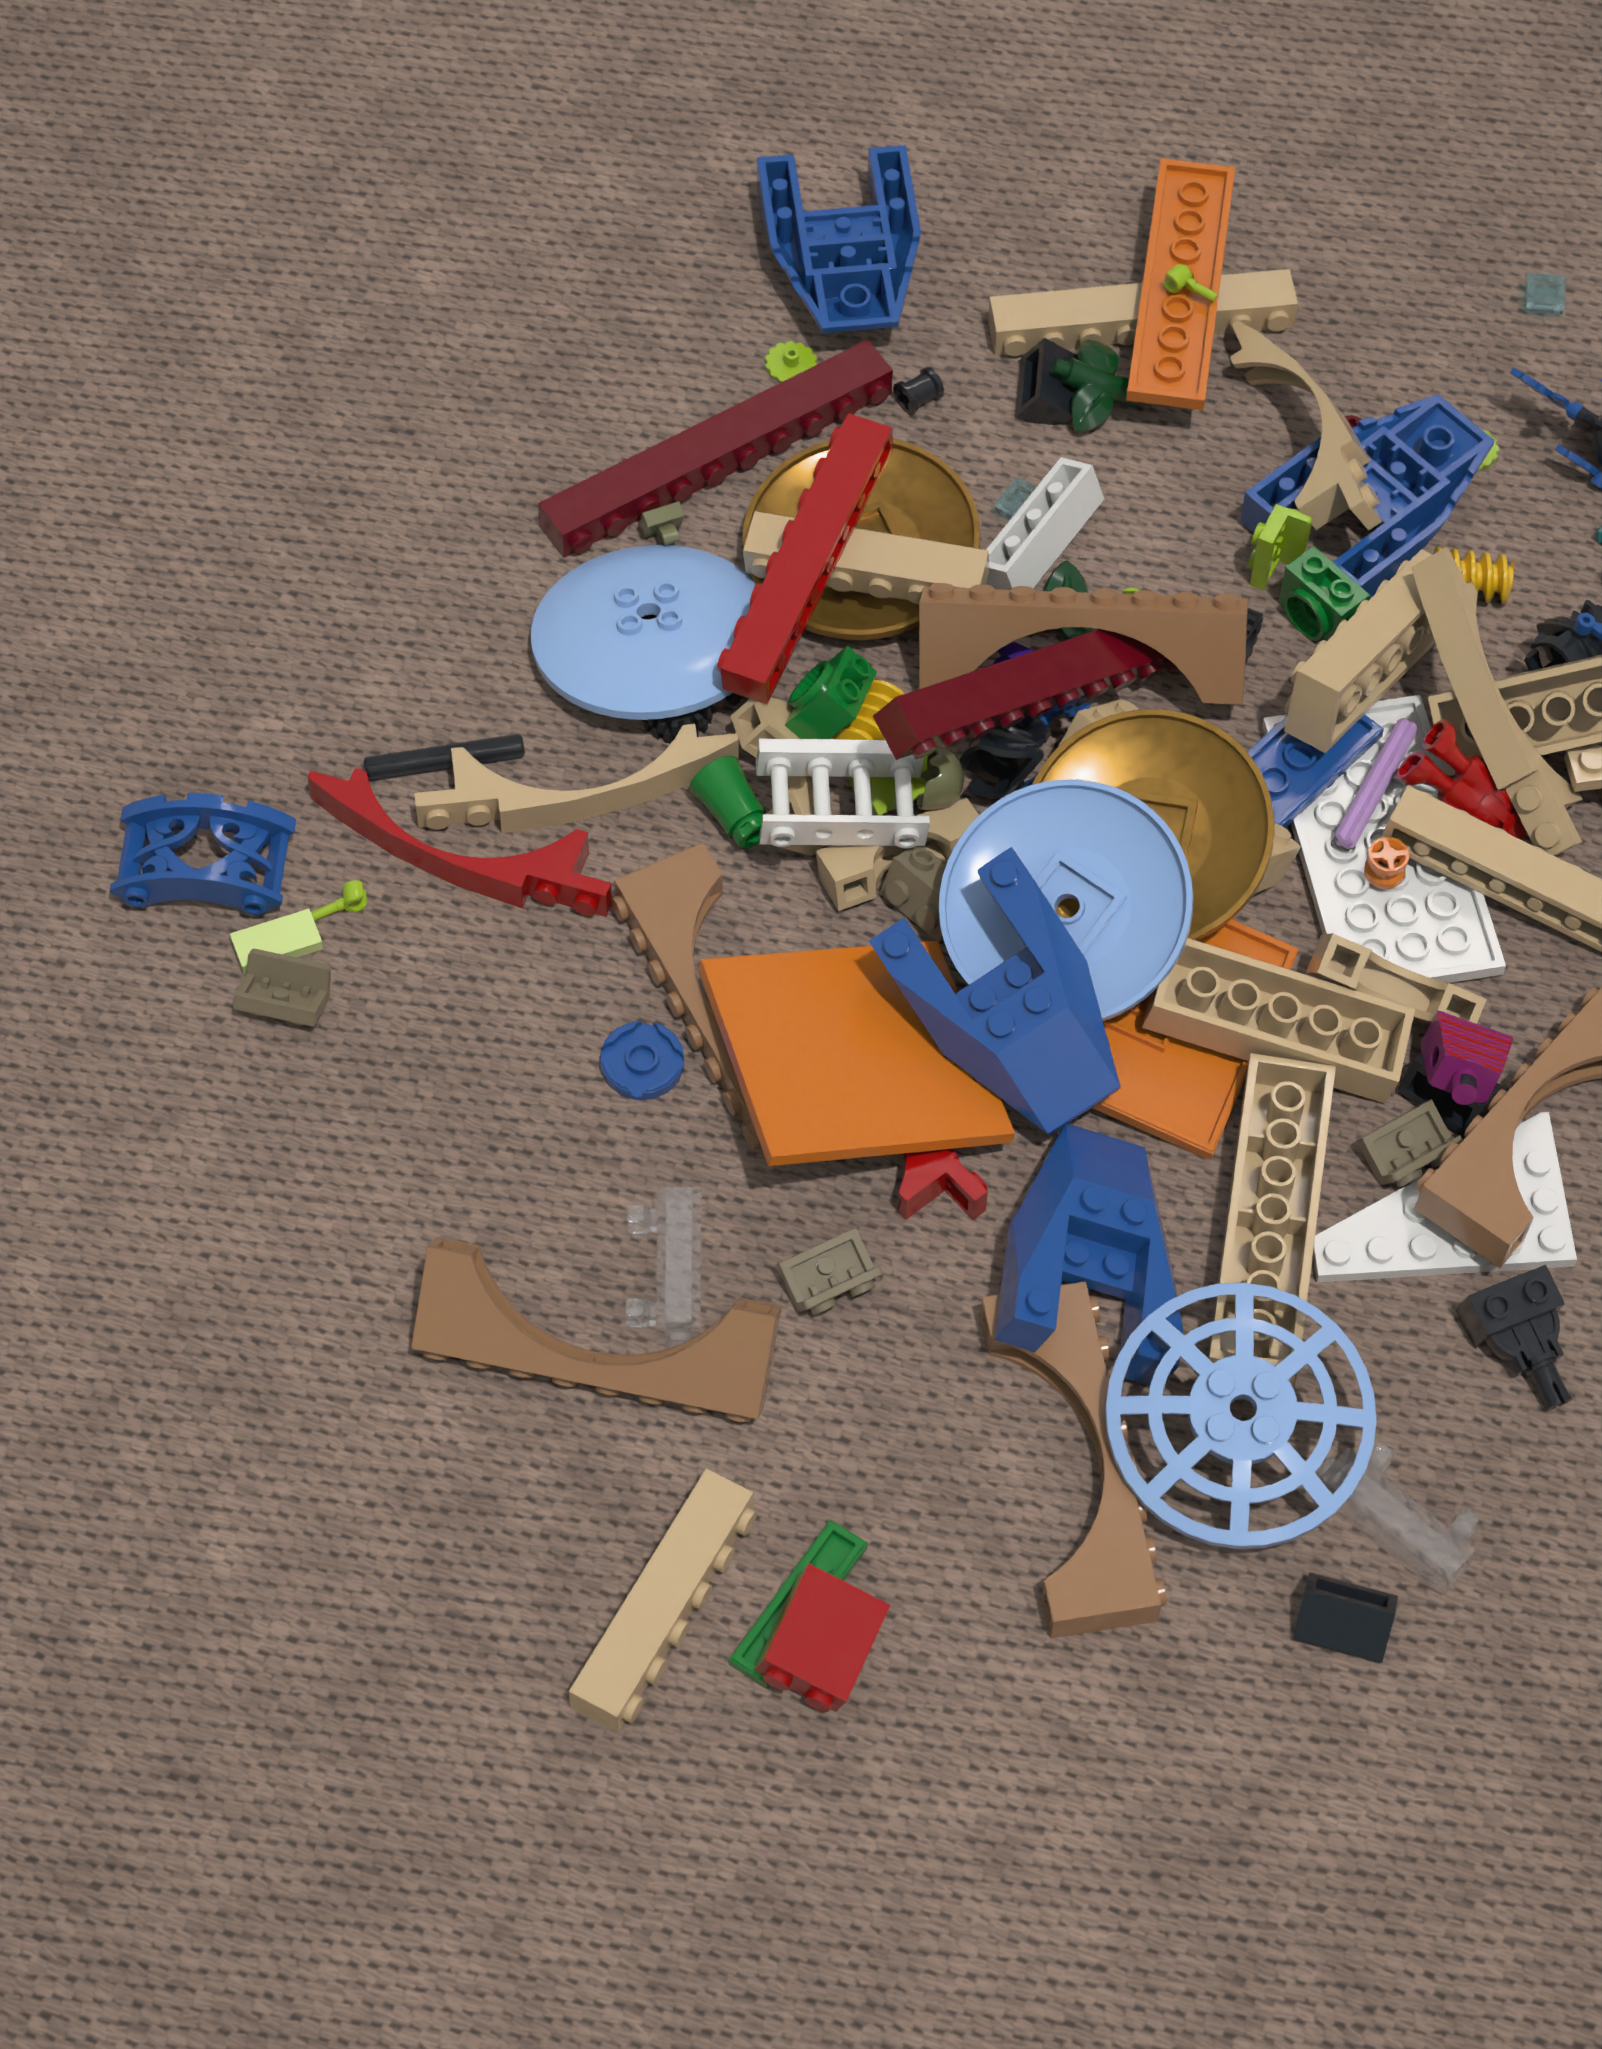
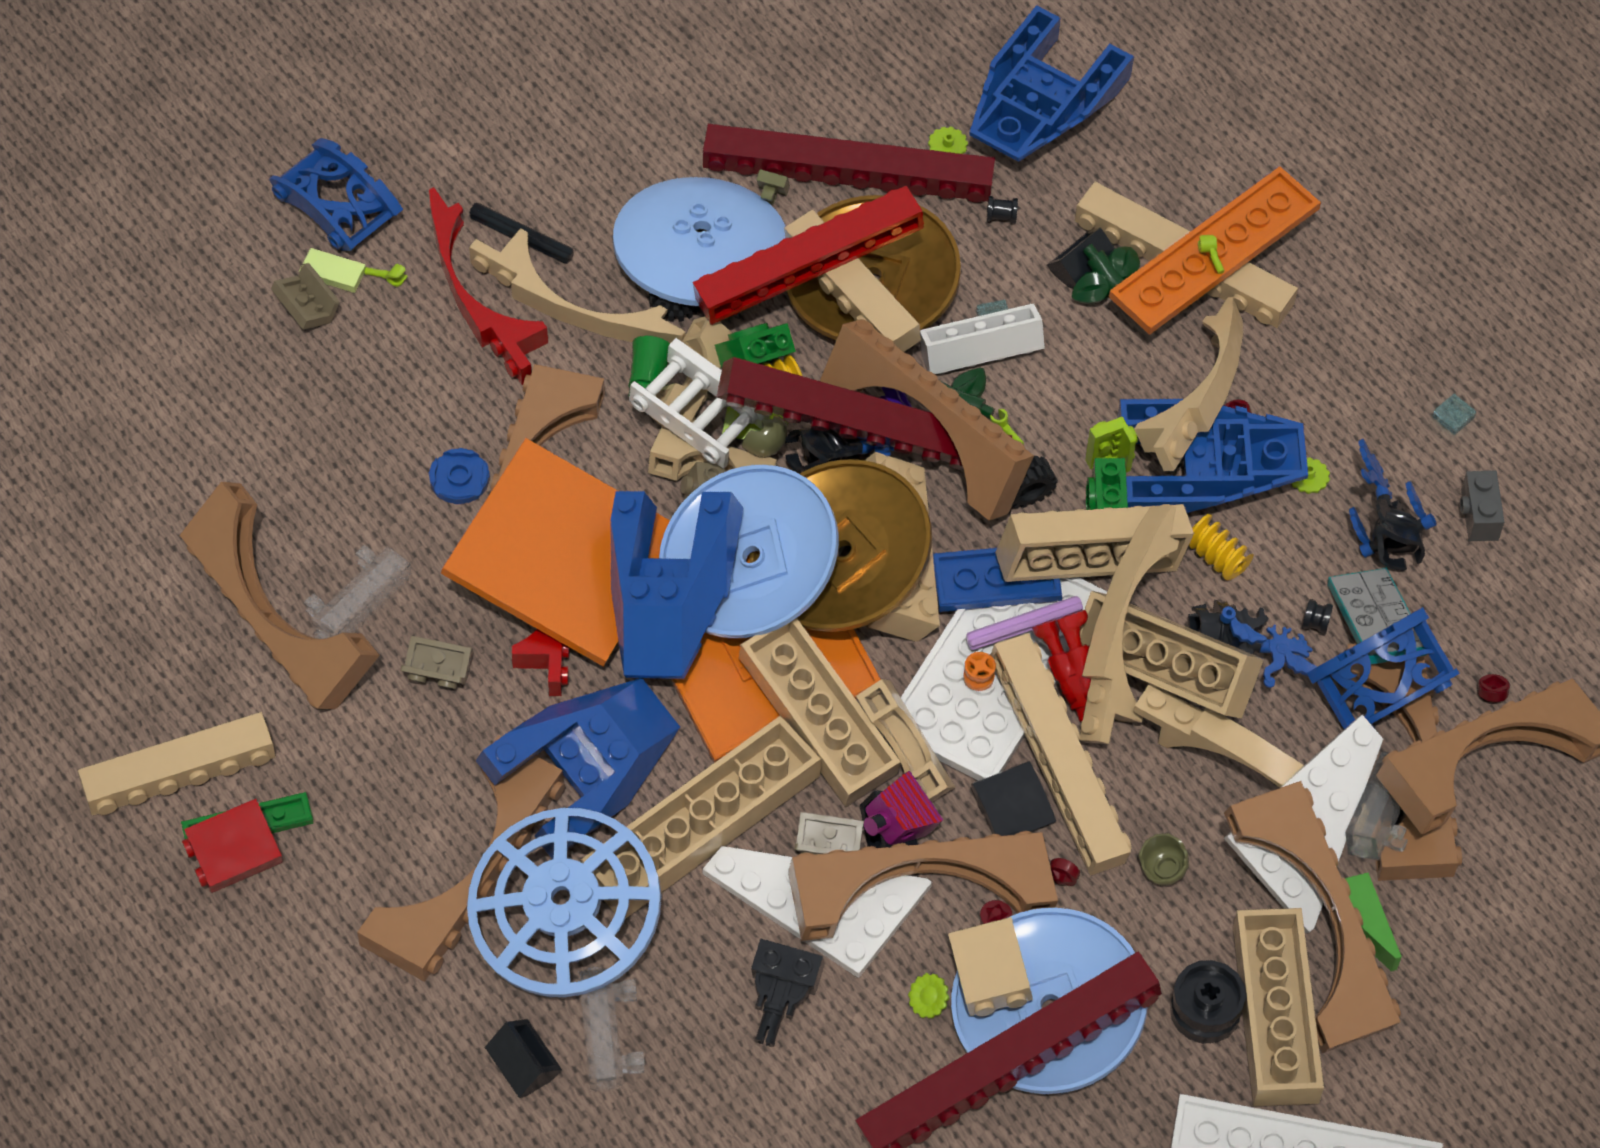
camera: 40 degrees right, 0 degrees up
(1544, 970) = (1014, 801): none -> black slope

